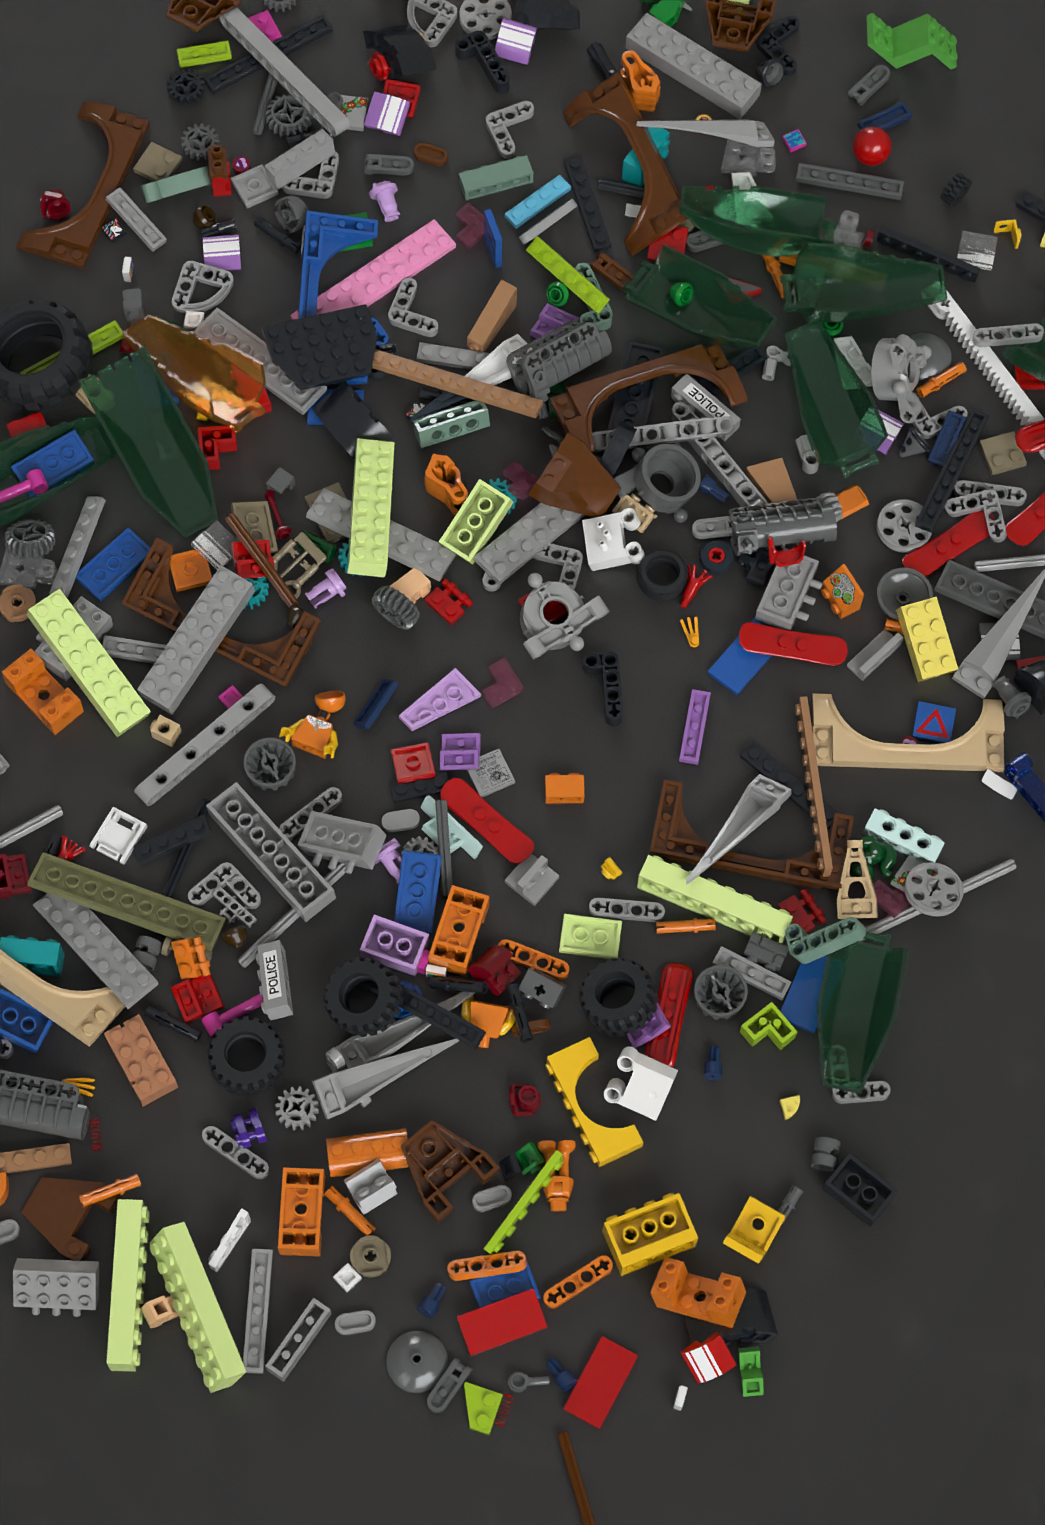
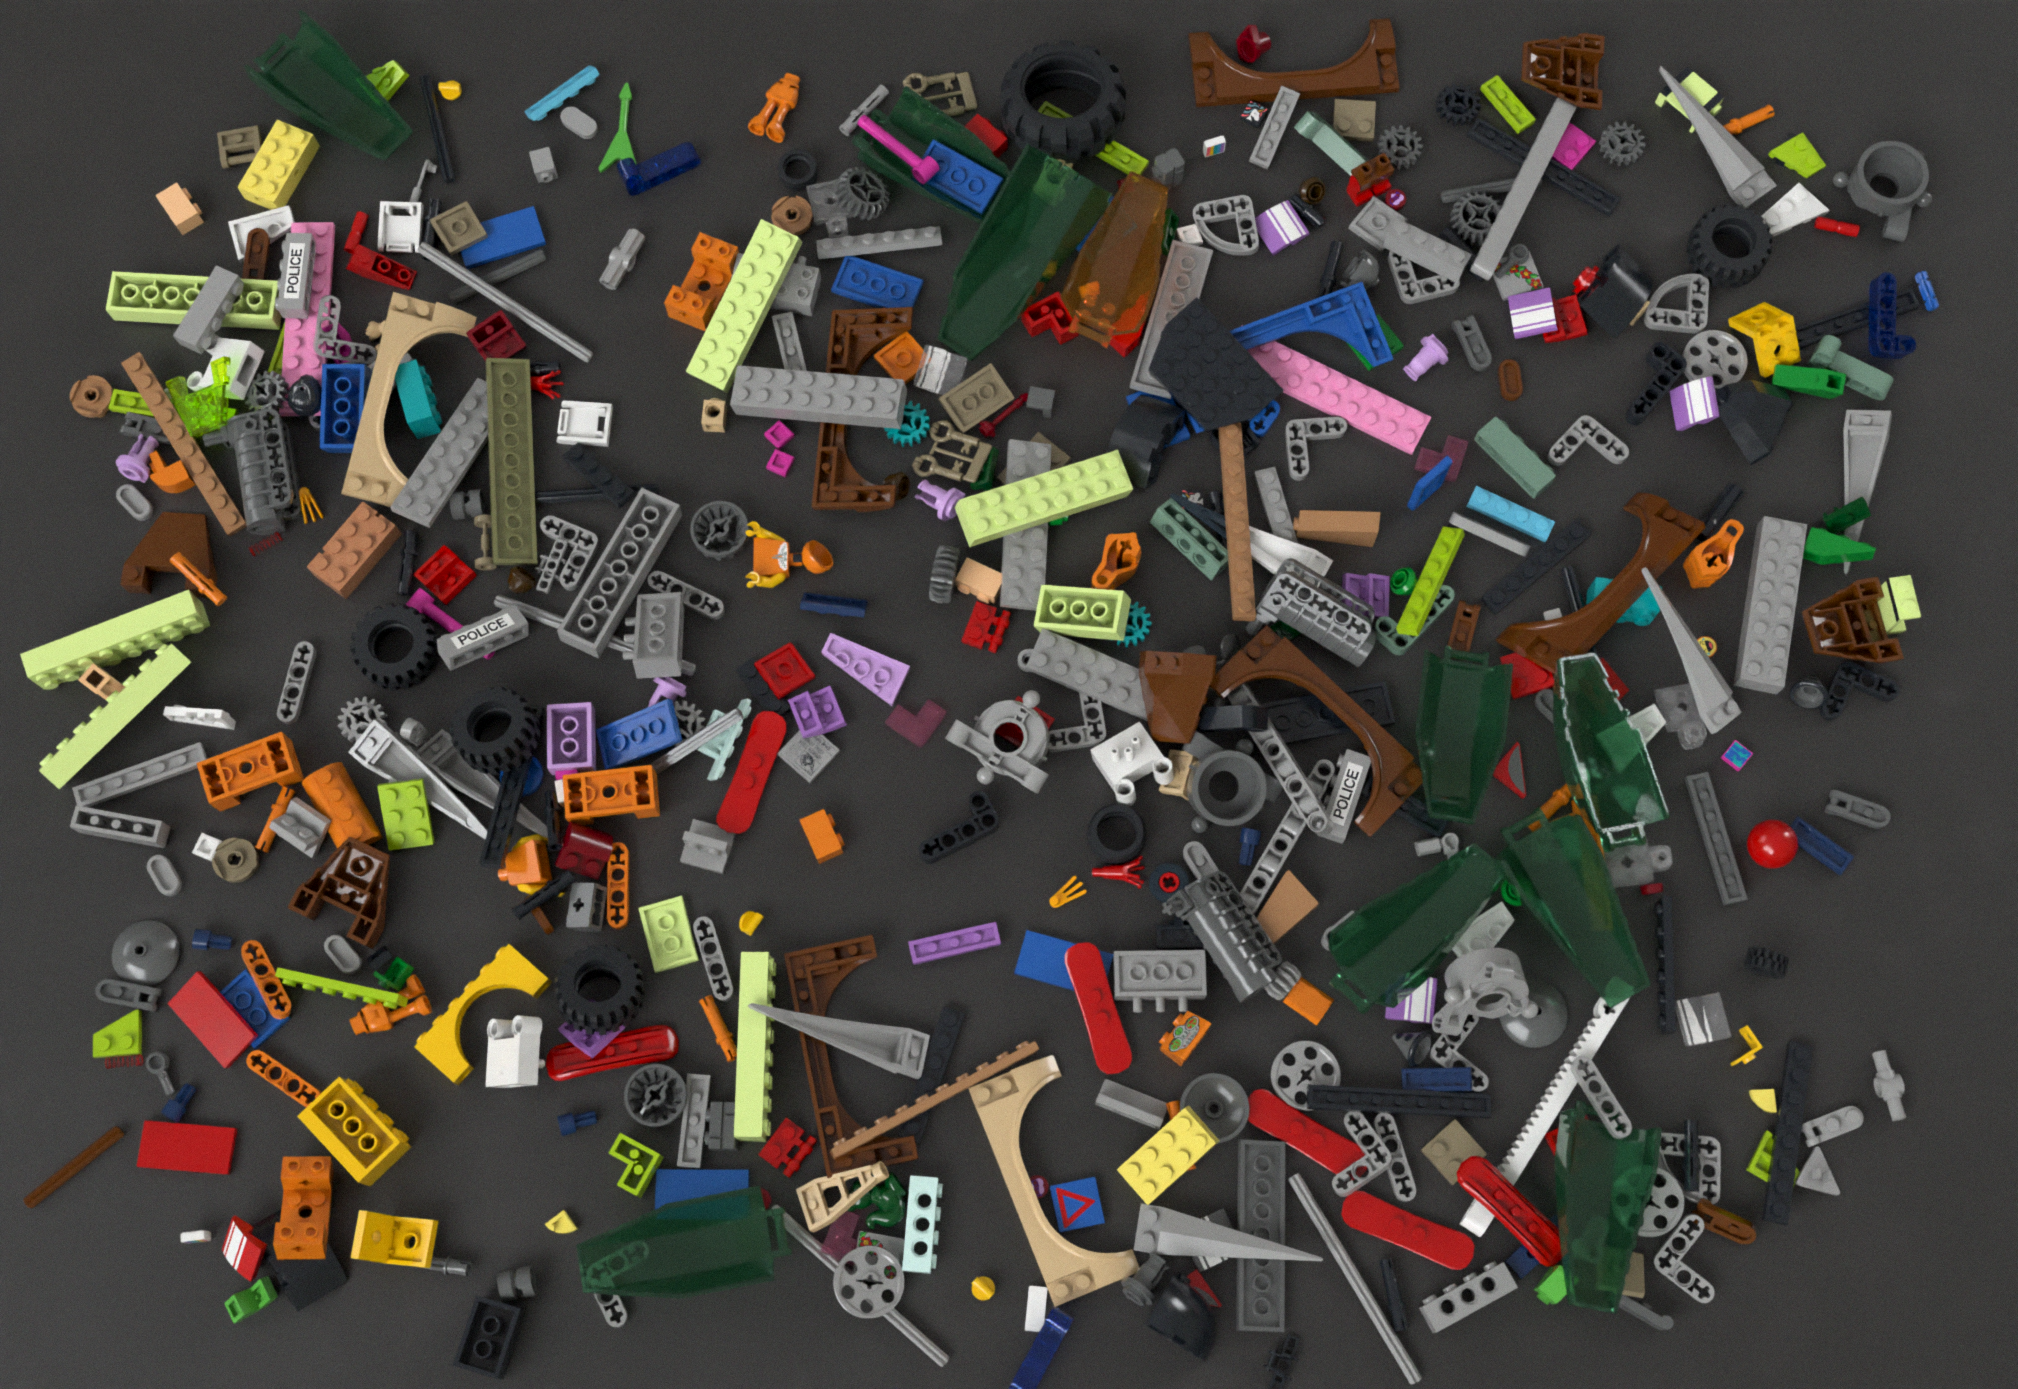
camera: 70 degrees right, 5 degrees up
(56, 1285) = (92, 574): light grey piece -> none
(187, 960) = (475, 547): orange plate -> none
(204, 744) = (716, 459): light grey beam -> none
(206, 690) = (779, 435): none -> dark pink tile
(239, 1124) = (321, 683): dark purple brick -> none
(245, 564) = (936, 411): red slope -> none
(261, 560) = (934, 418): reddish brown axle -> none
(398, 1099) = (406, 814): none -> lime plate
(400, 820) = (717, 686): light grey tile -> none
(522, 480) = (1163, 639): clear pink plate -> none
(527, 1099) = (460, 944): dark red piece -> none
(681, 293) = (1468, 710): green cone -> none
(787, 557) = (1191, 955): red helmet -> none
(798, 940) = (728, 1165): sand green beam -> none
(911, 41) = (1935, 832): bright green bracket -> none
(935, 383) = (1507, 1041): orange pin -> none
(970, 814) = (983, 1288): none -> yellow plate

